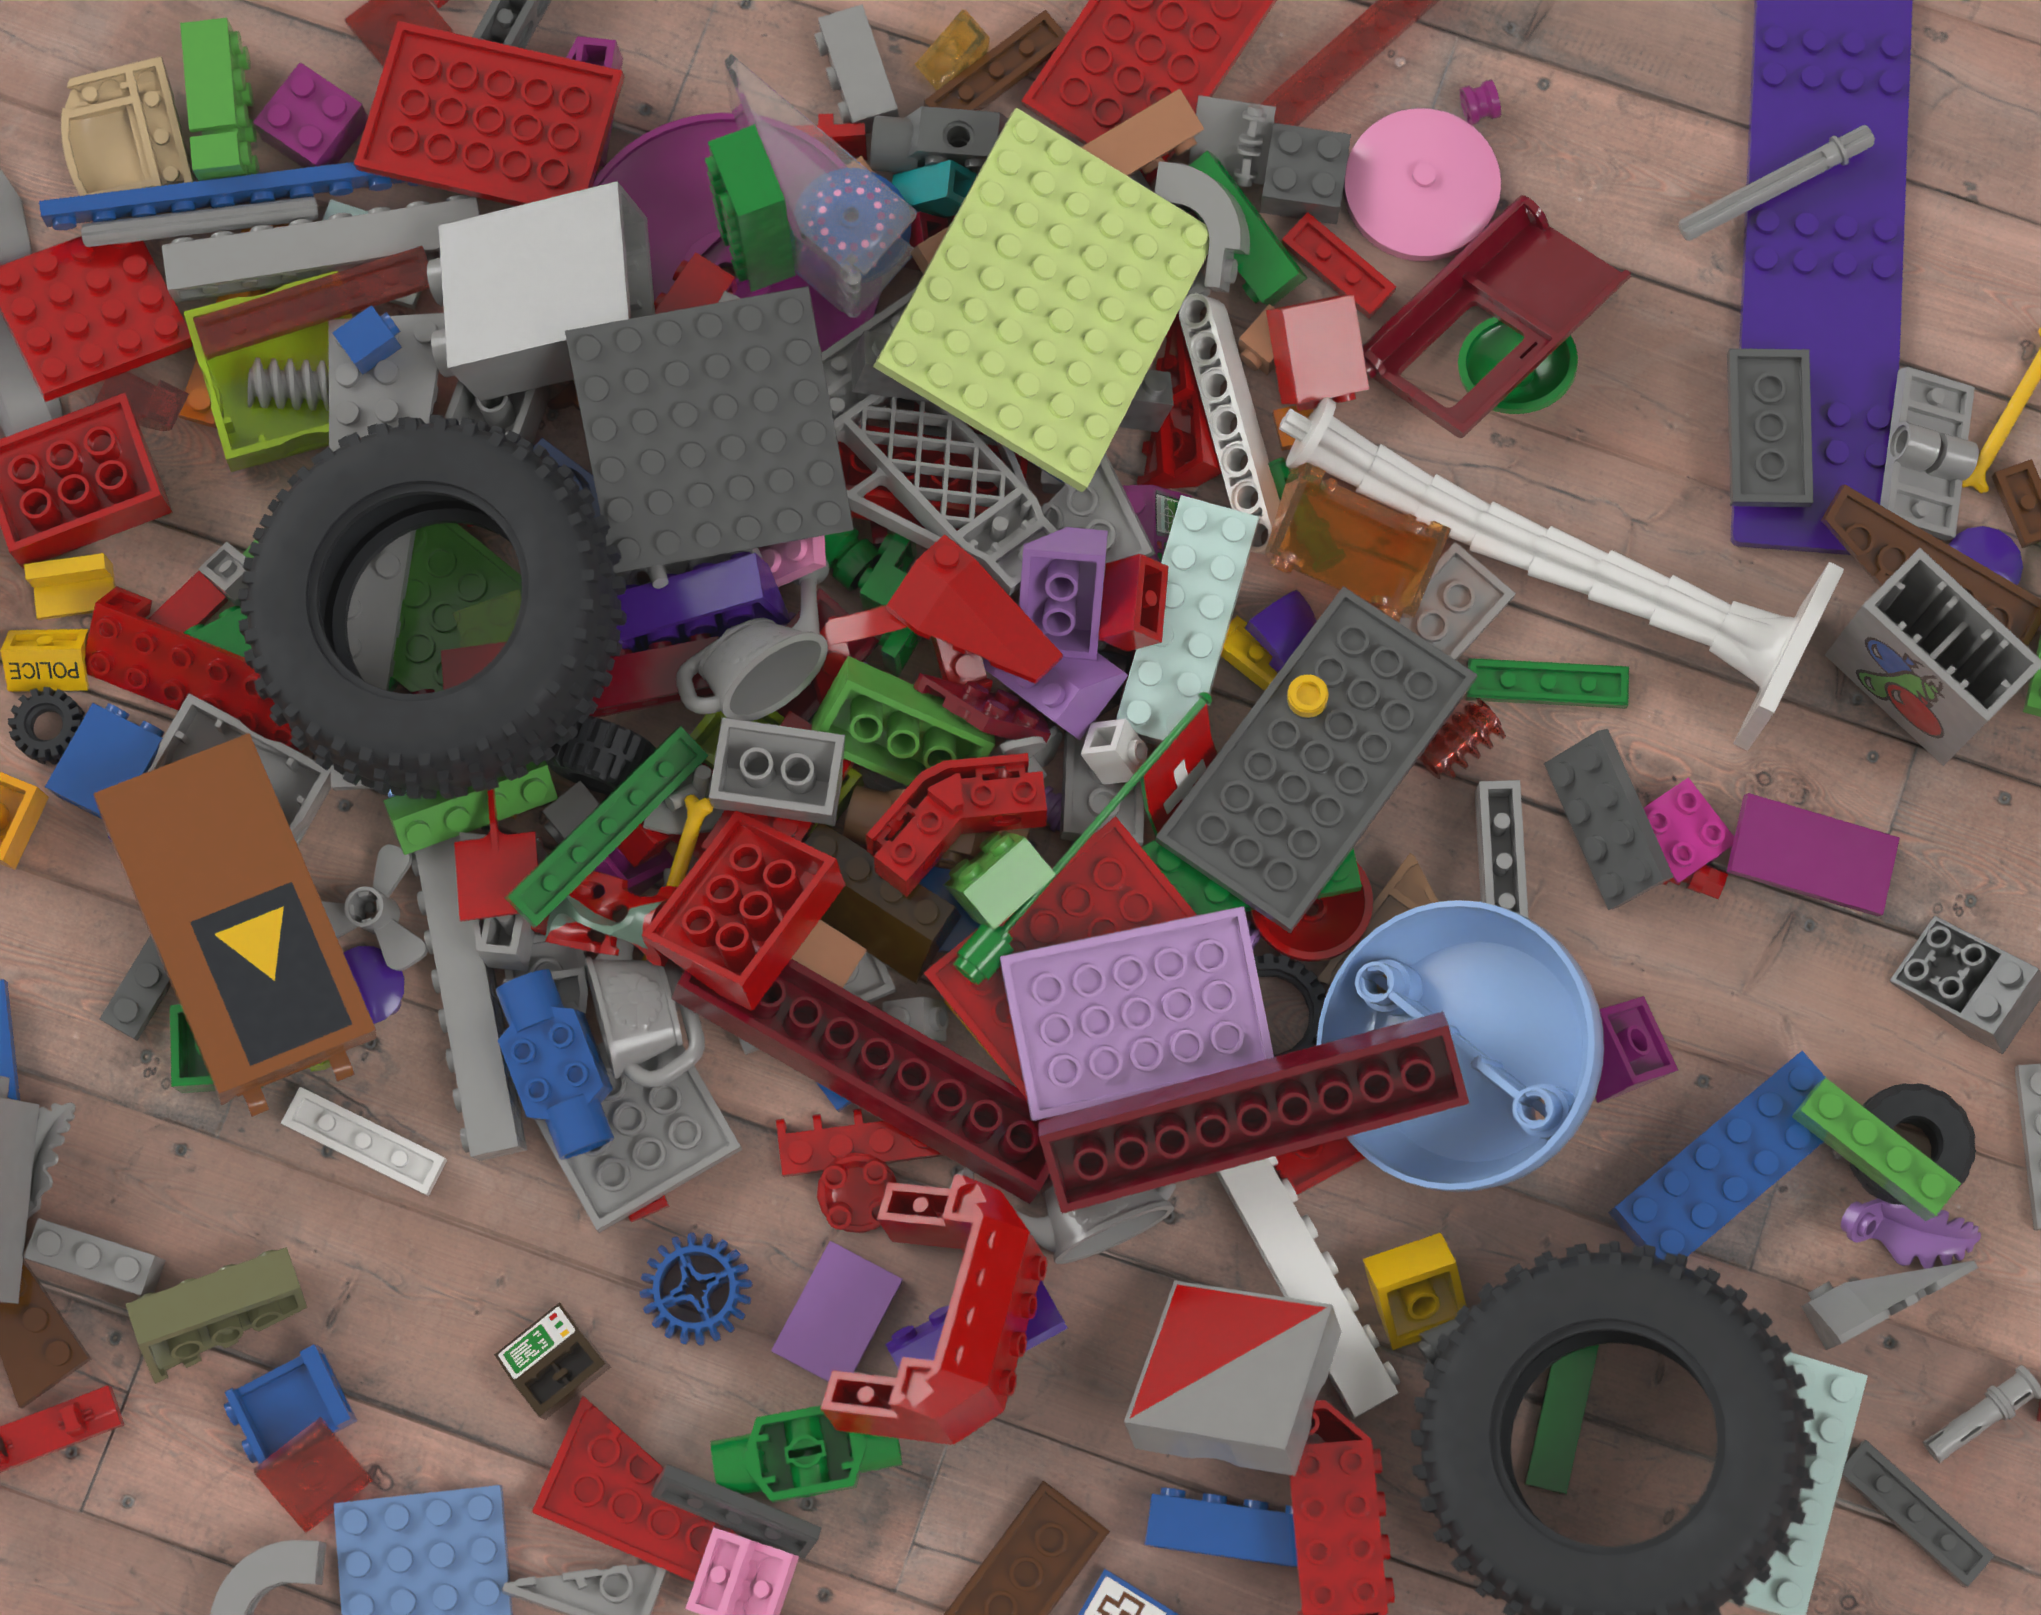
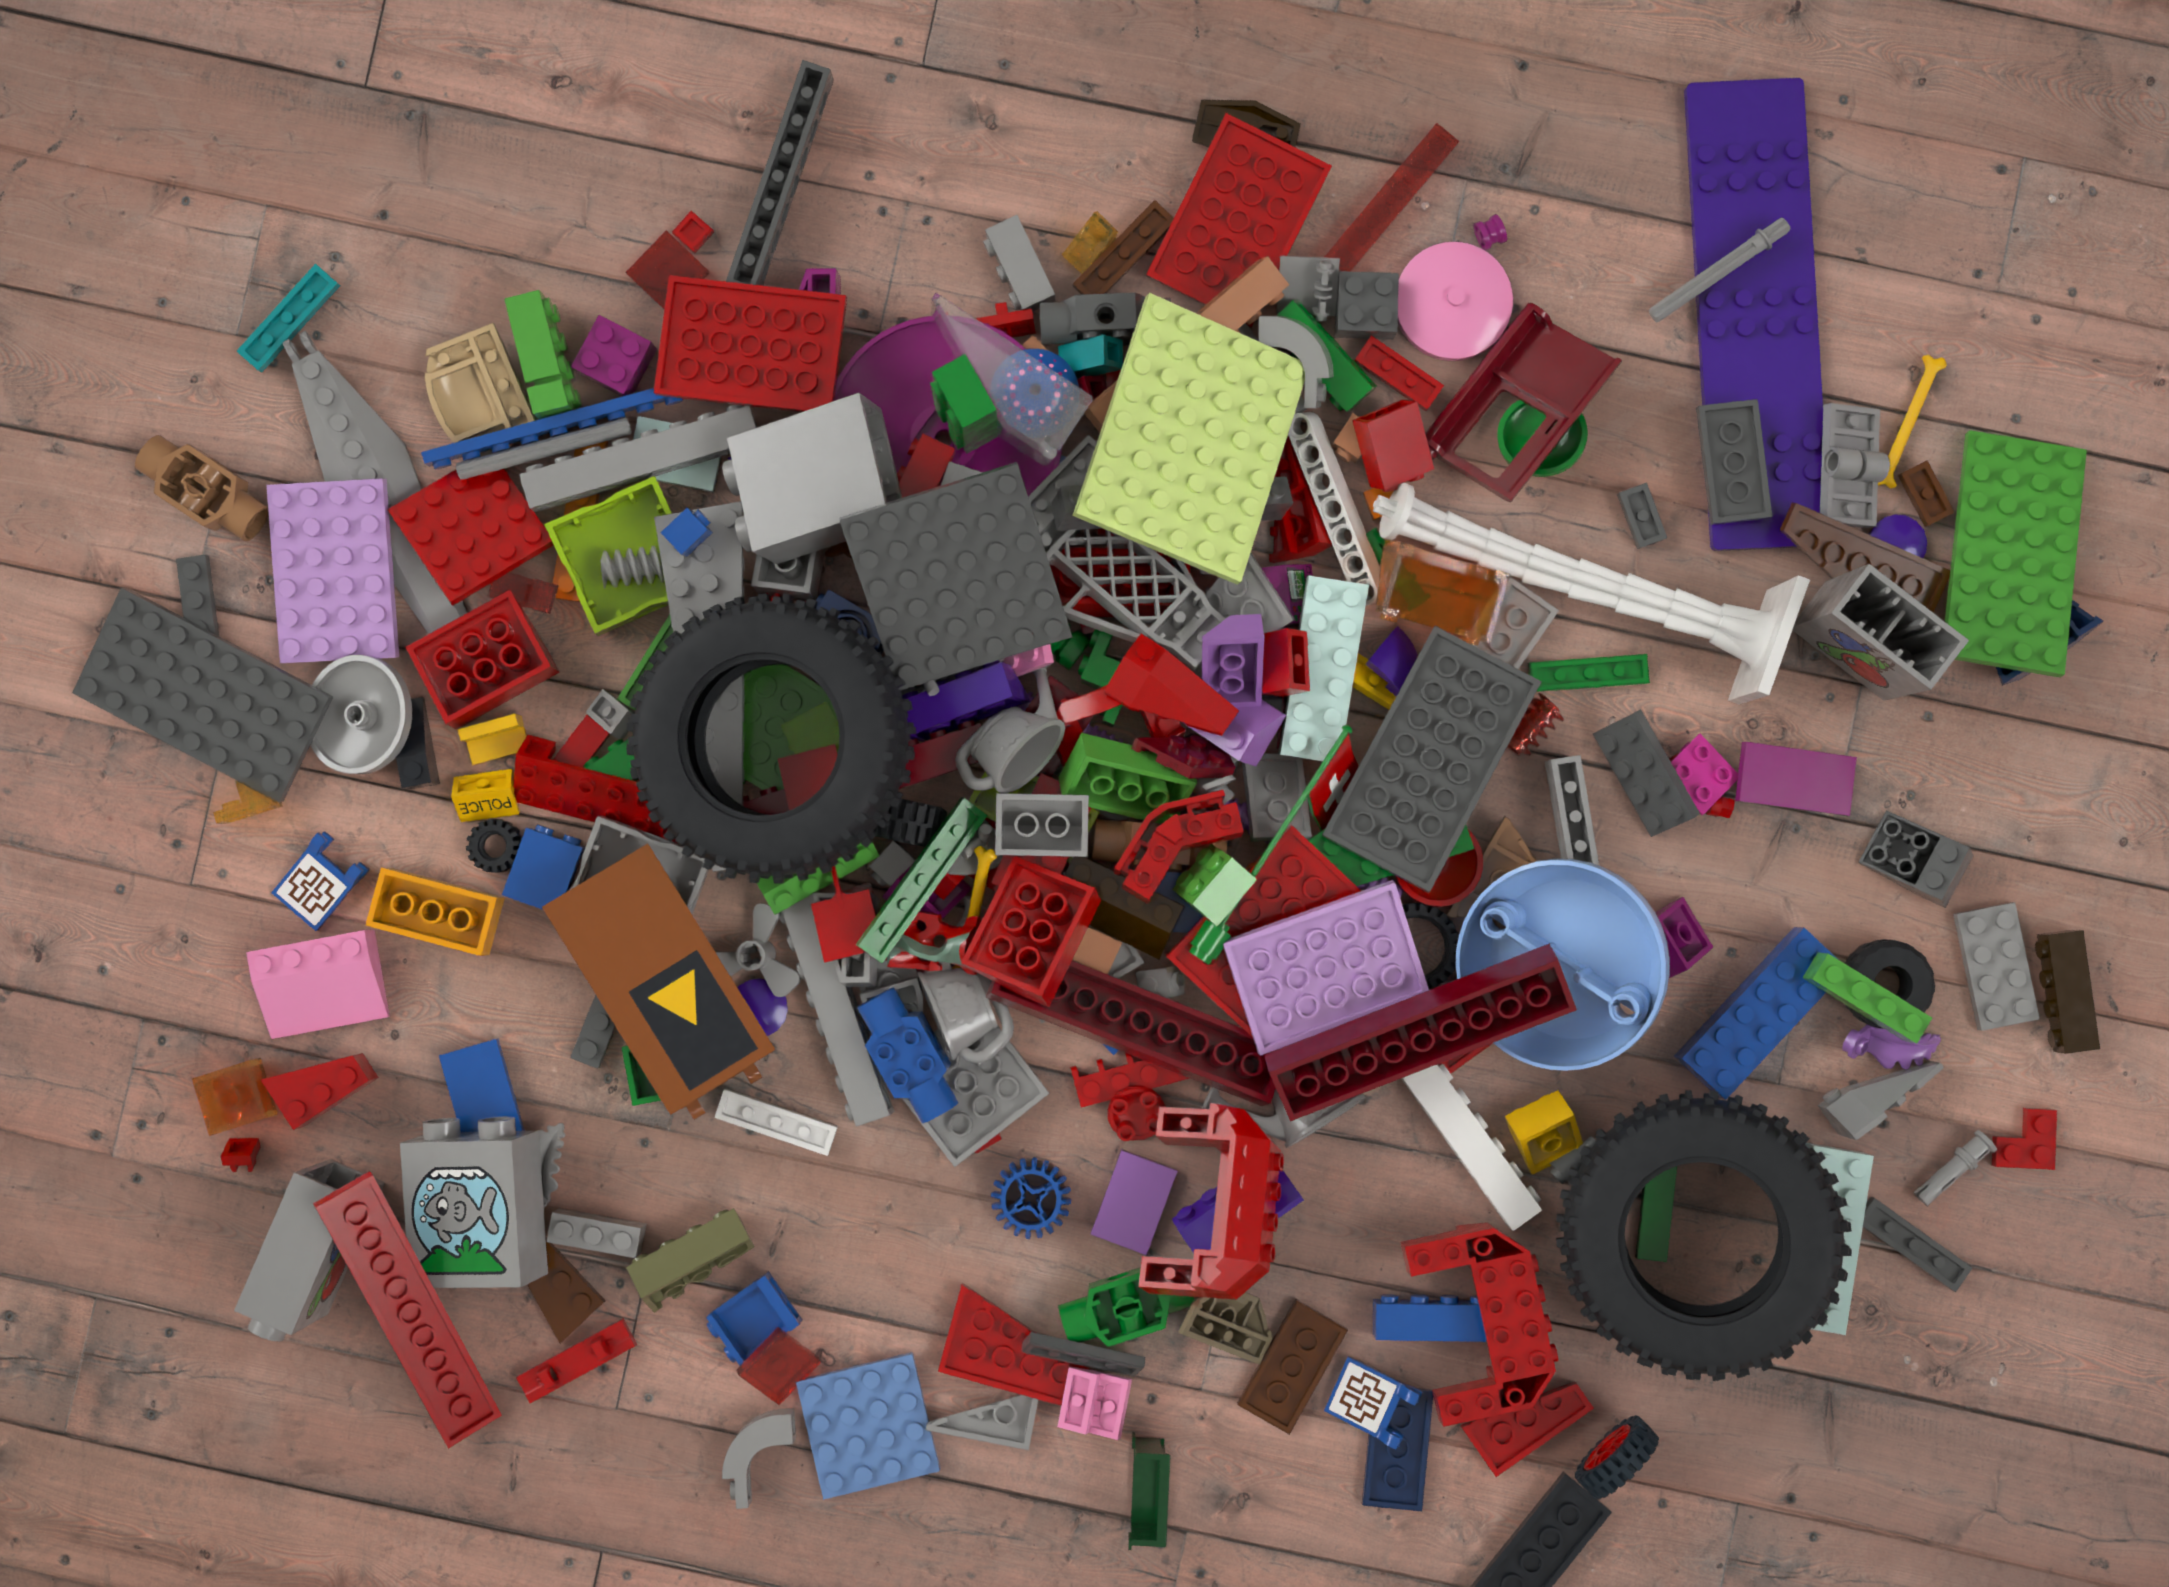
camera: 10 degrees left, 10 degrees up
(313, 302) = (640, 505): clear red plate -> none
(551, 1361) = (935, 1263): dark brown slope -> none
(943, 1491) = (1229, 1325): none -> dark tan wedge
(1113, 750) = (1283, 772): white brick -> none
(1233, 1377) = (1426, 1220): light grey tile -> none
(1307, 696) = (1420, 714): yellow tile -> none
(1641, 486) = (1642, 516): none -> dark grey plate

